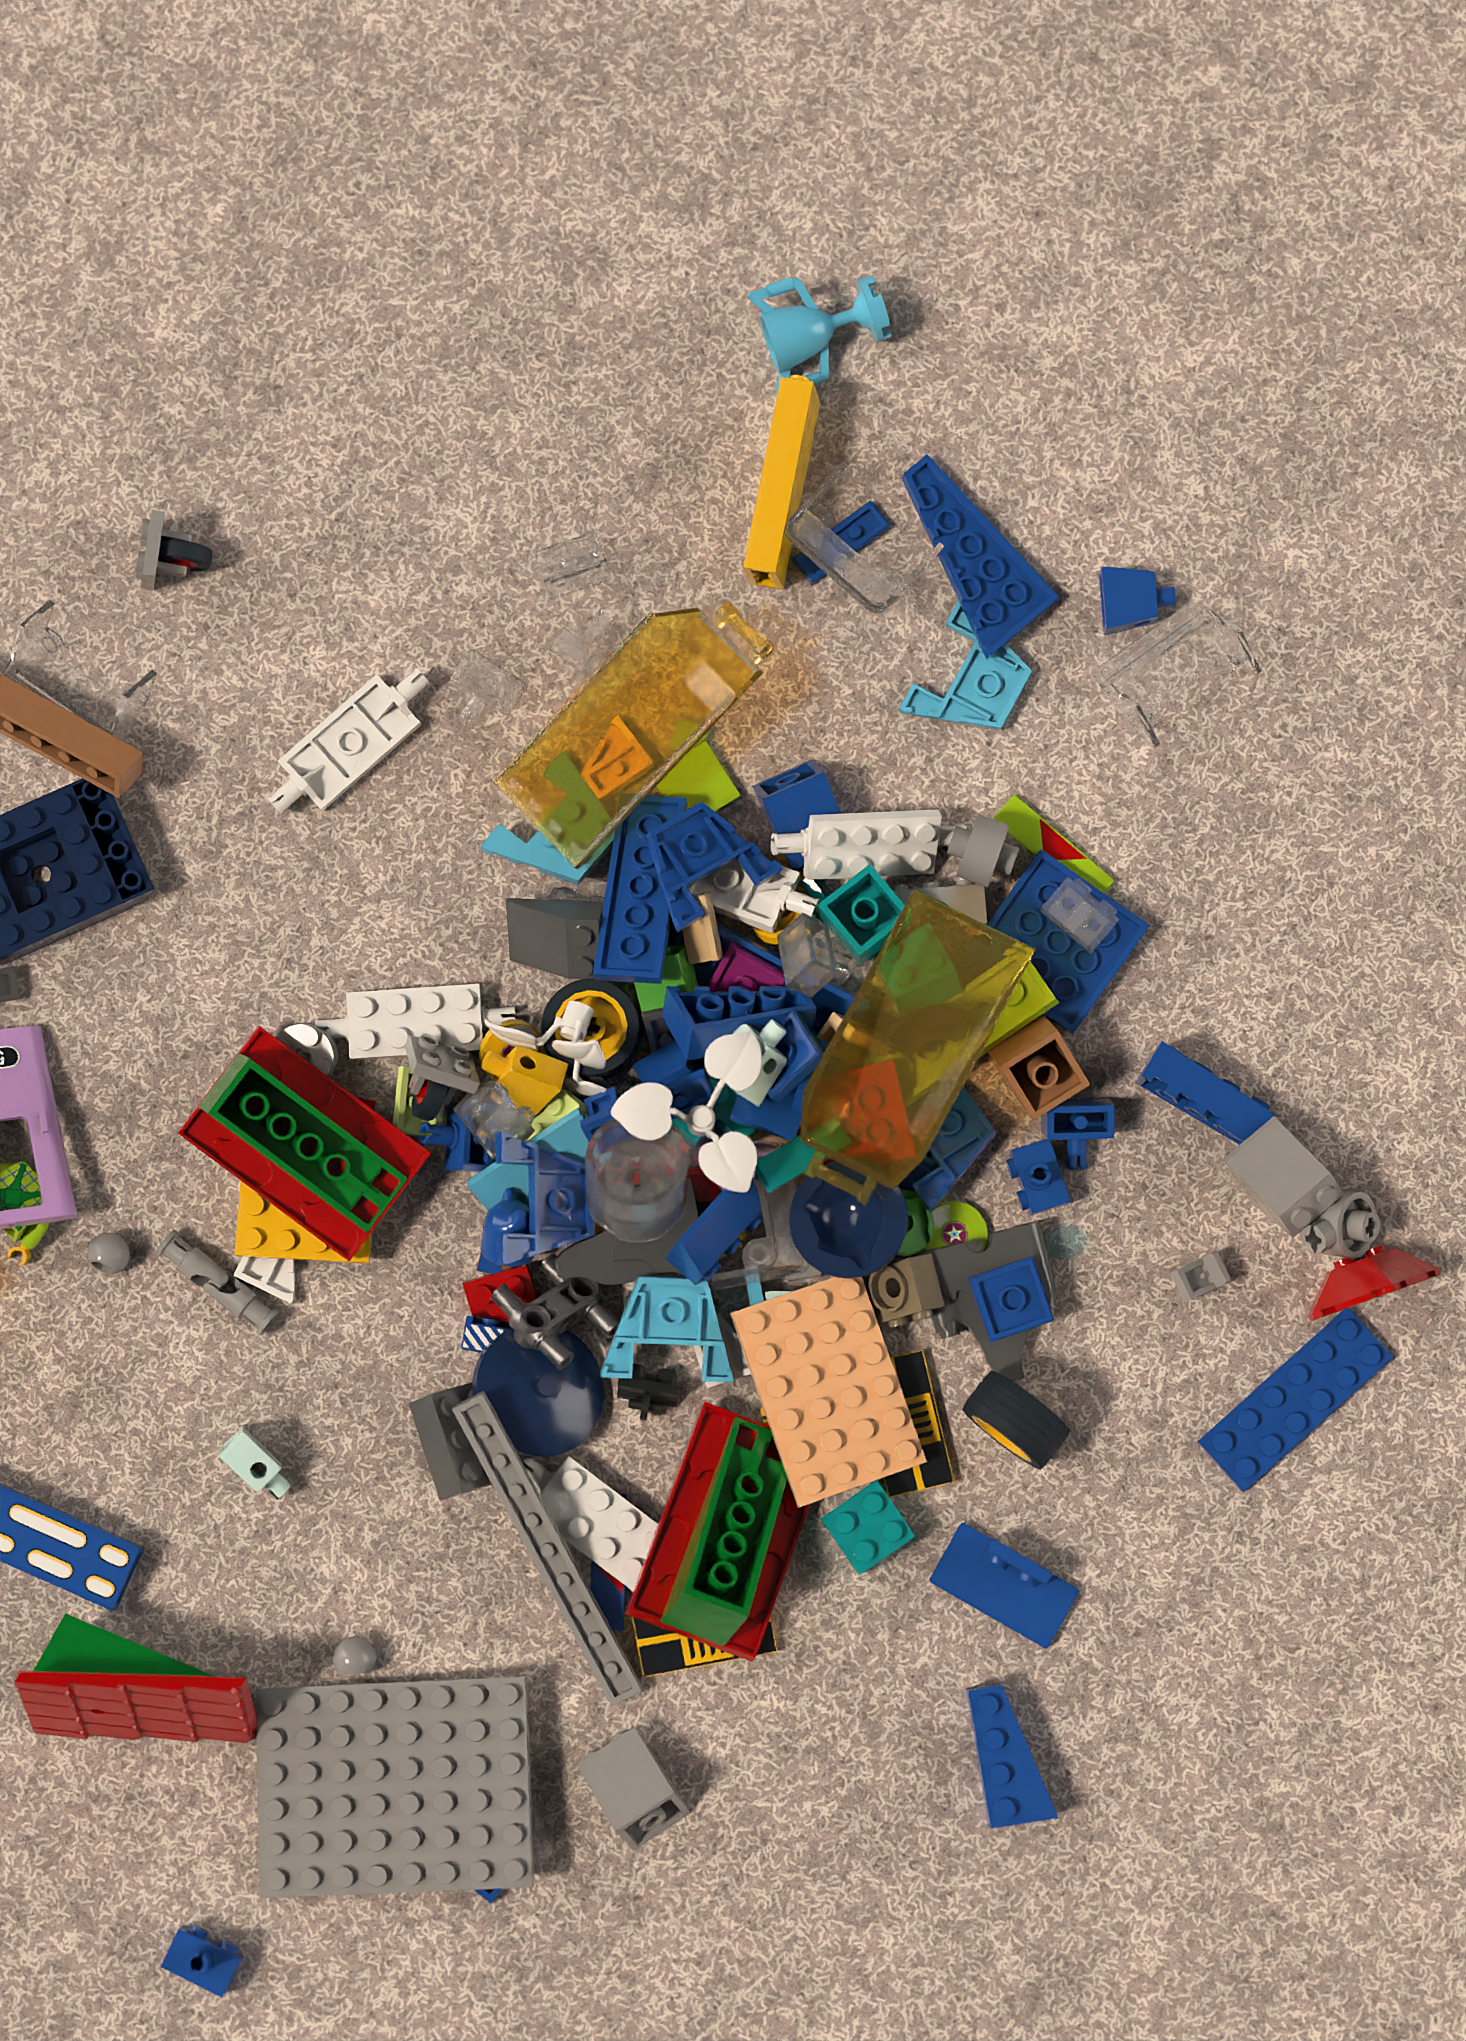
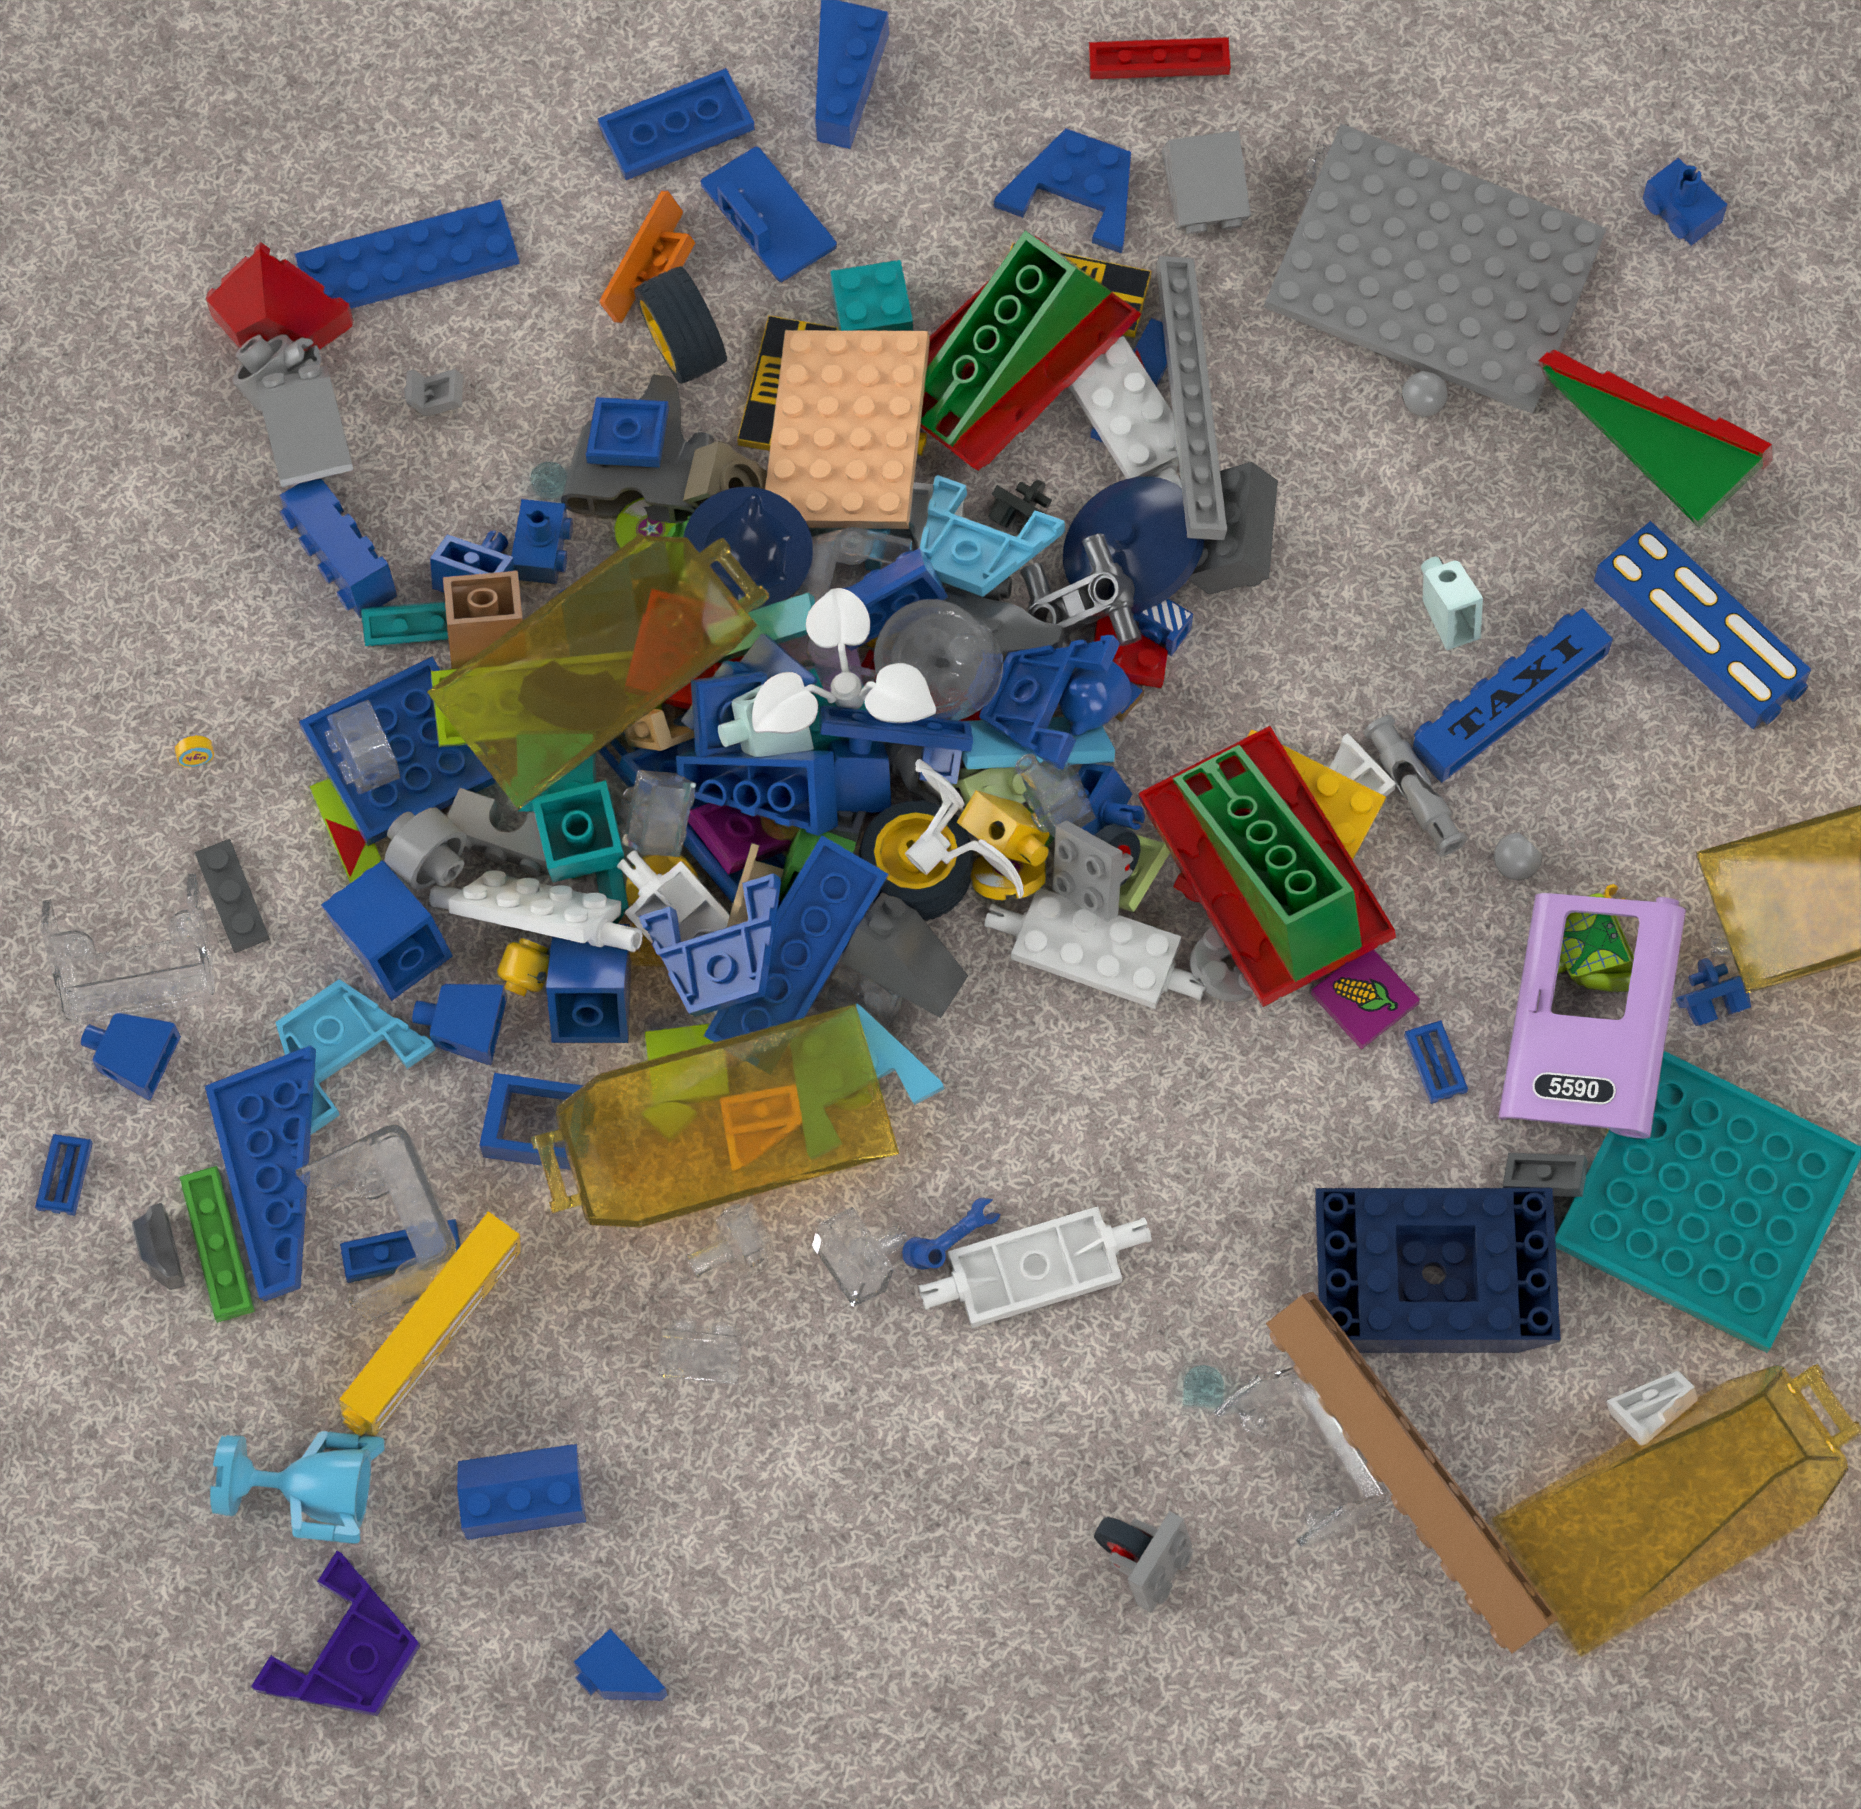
camera: 155 degrees left, 15 degrees down
(126, 1073) = (1446, 1091): none -> blue tile
(169, 1400) = (1511, 694): none -> blue brick
(181, 709) = (1203, 1387): none -> clear light blue tile
(181, 1078) = (1365, 997): none -> magenta tile
(435, 713) = (927, 1253): none -> blue brick
(517, 302) = (616, 1672): none -> blue slope
(656, 401) = (520, 1492): none -> blue slope
(711, 231) = (360, 1658): none -> dark purple wing
(731, 1904) = (1159, 58): none -> red plate
(747, 1755) = (1081, 172): none -> blue wing
(821, 677) = (492, 1141): none -> blue window
(860, 797) = (524, 967): none -> yellow head
(885, 739) = (465, 1019): none -> blue torso
(984, 485) = (217, 1244): none -> bright green tile
(985, 779) = (387, 929): none -> blue slope
(1023, 455) = (158, 1247): none -> flat silver slope
(1079, 1490) = (650, 254): none -> orange bracket
(1113, 1054) = (404, 623): none -> teal tile
(1126, 763) = (232, 896): none -> dark grey plate
(1129, 1638) = (676, 124): none -> blue plate
(1138, 512) = (79, 1174): none -> blue tile
(1222, 866) = (194, 751): none -> yellow tile

